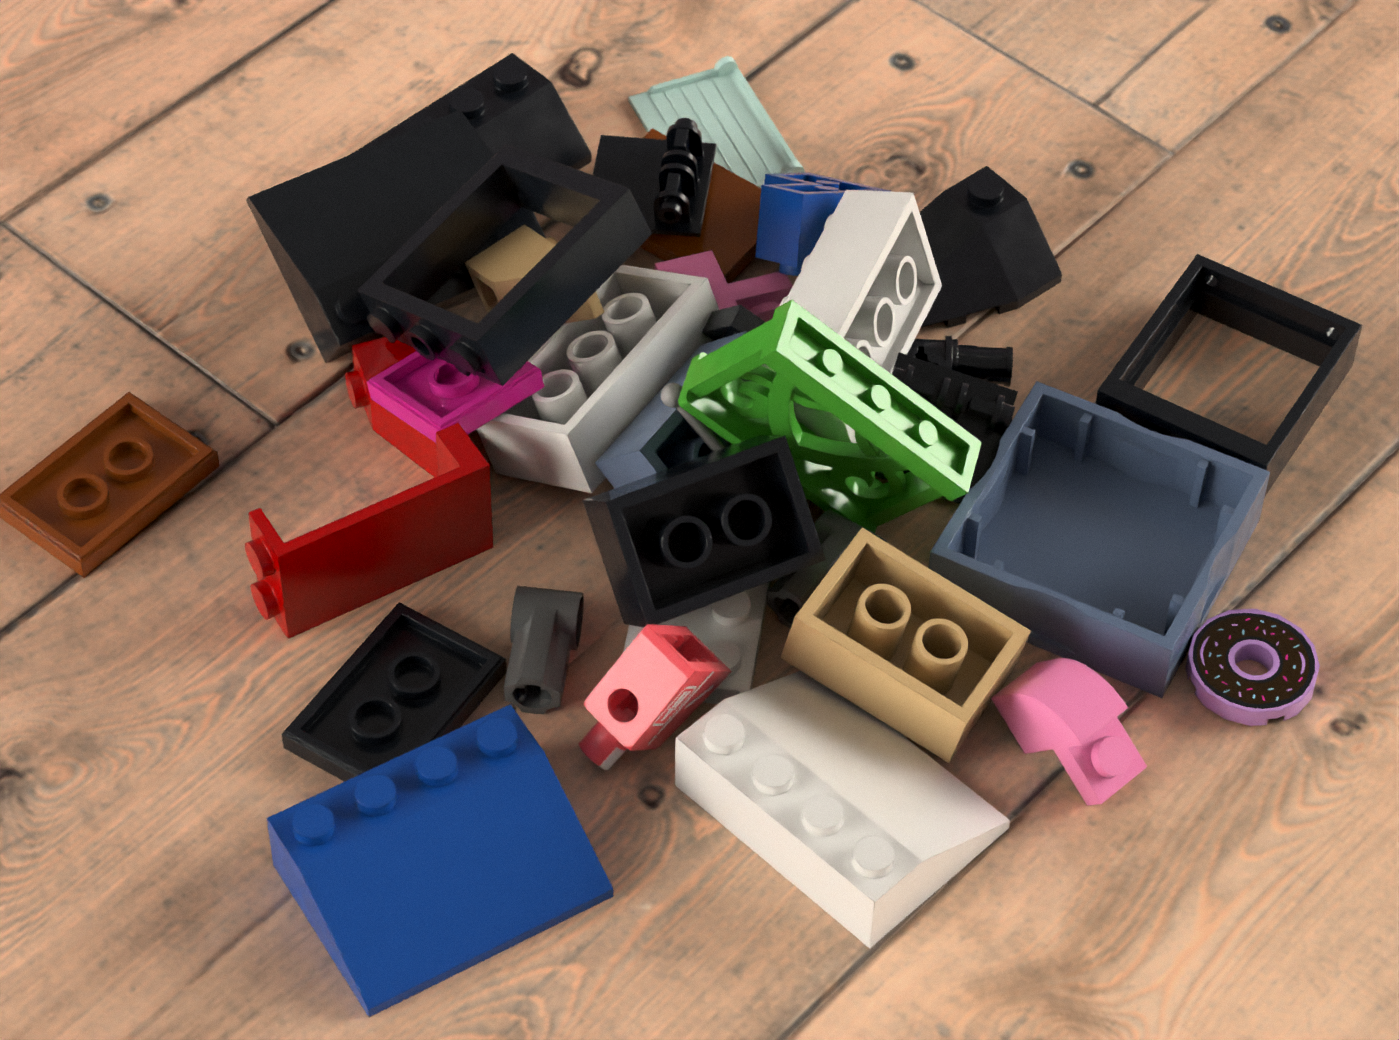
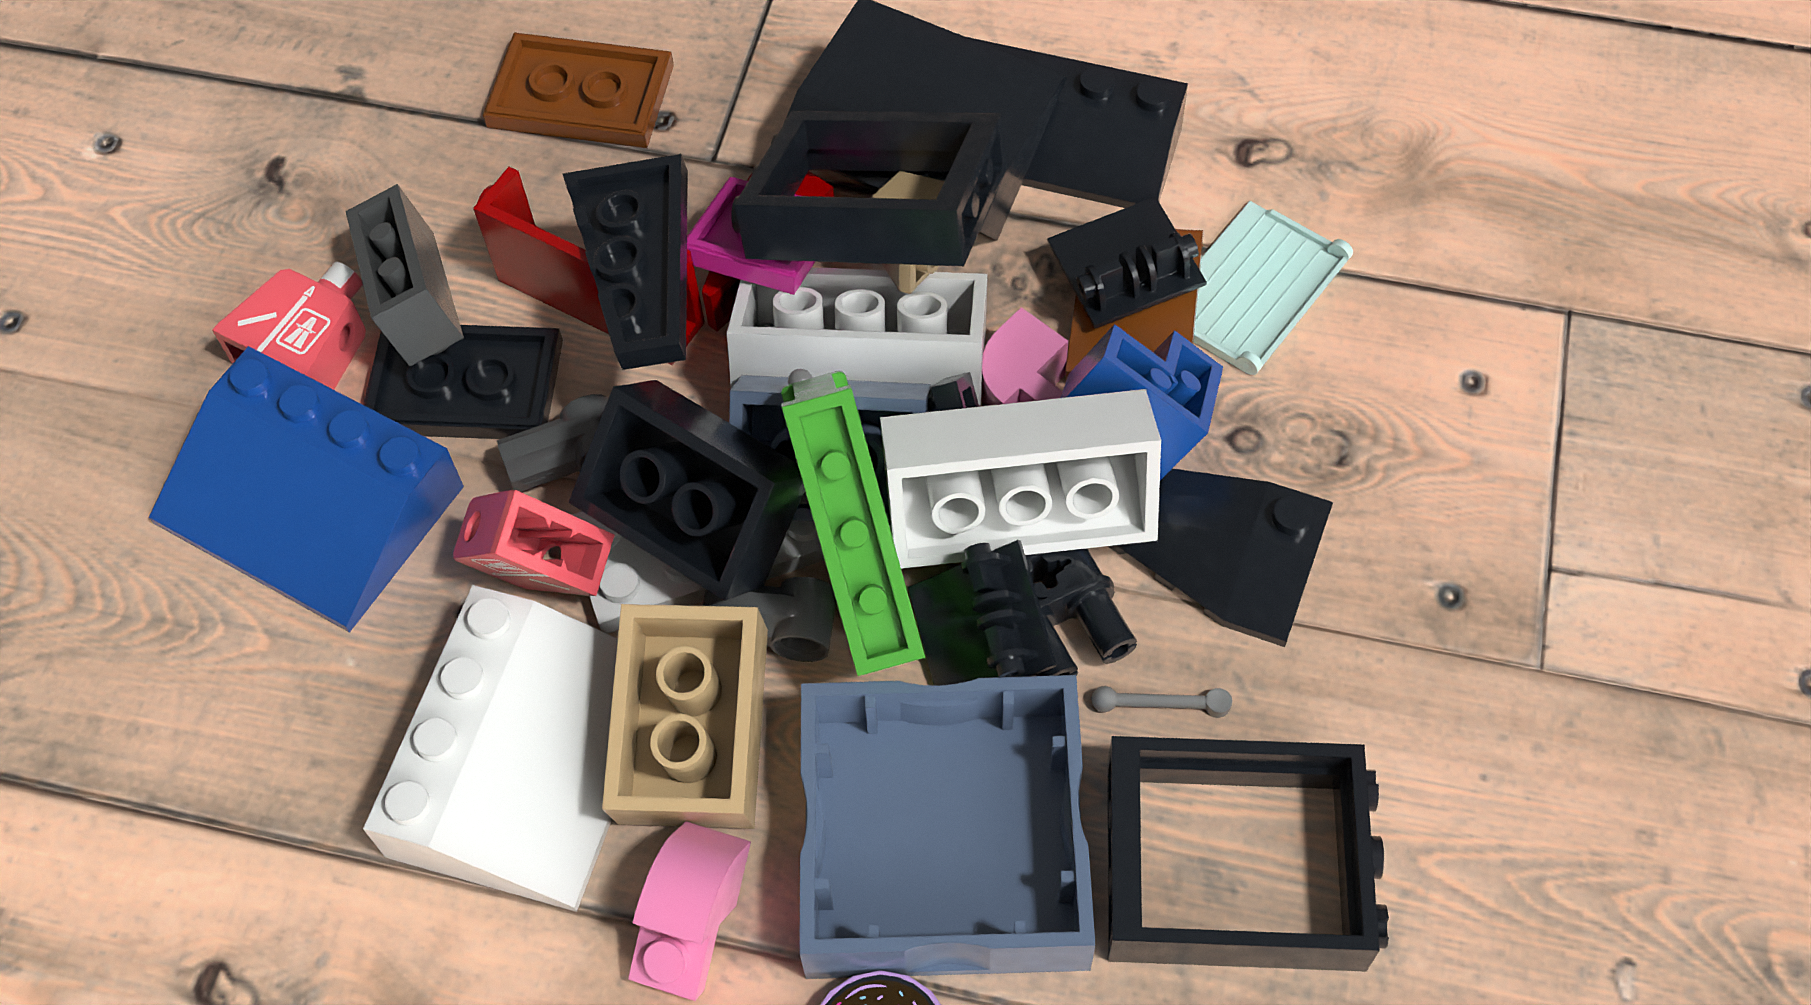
camera: 65 degrees right, 10 degrees up
(233, 791) = (299, 323): none -> coral torso
(269, 669) = (403, 276): none -> dark grey brick
(438, 444) = (637, 253): none -> black wing
(1084, 342) = (1216, 702): none -> light grey hinge

